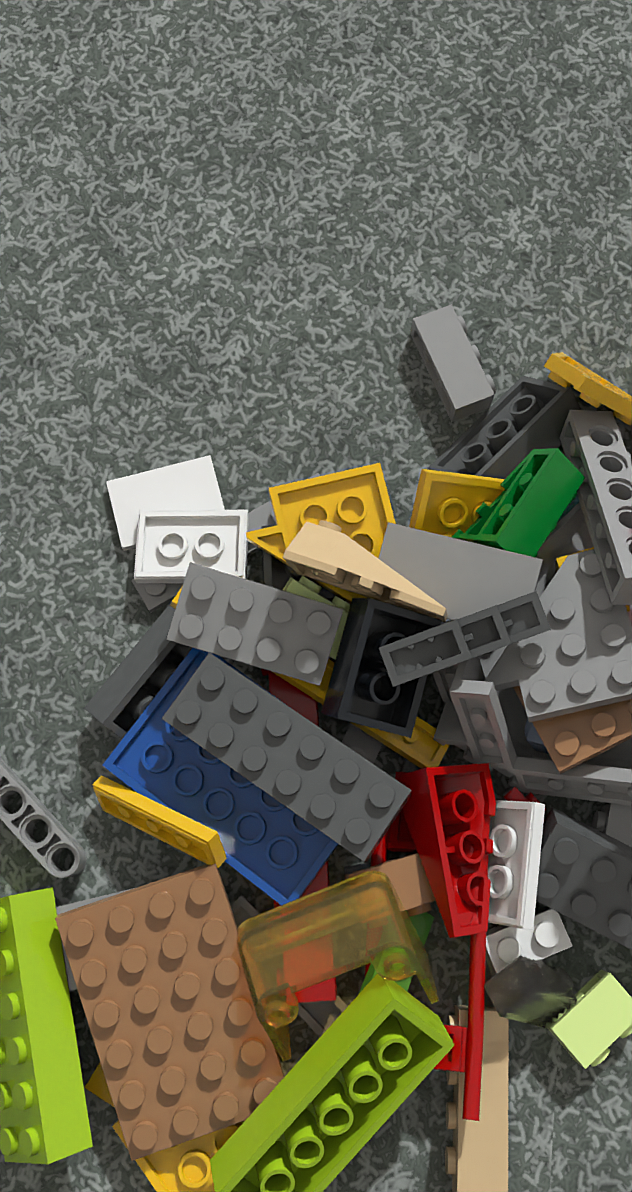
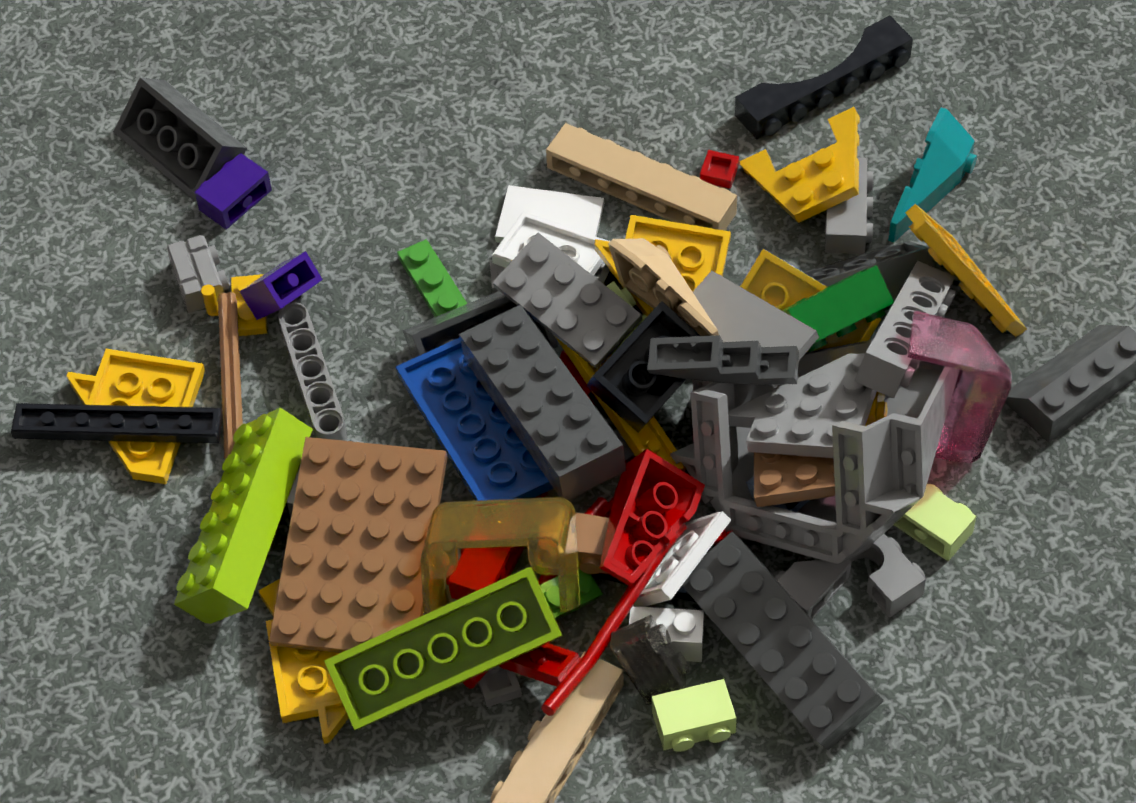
camera: 30 degrees right, 20 degrees down
(83, 627) = (431, 278): none -> bright green plate
(160, 821) = (418, 418): yellow tile -> none
(237, 420) = (639, 179): none -> tan brick
(307, 373) = (719, 169): none -> red plate
(325, 277) = (771, 105): none -> black arch
(417, 351) = (816, 180): none -> yellow wing
(520, 278) = (938, 172): none -> teal wedge

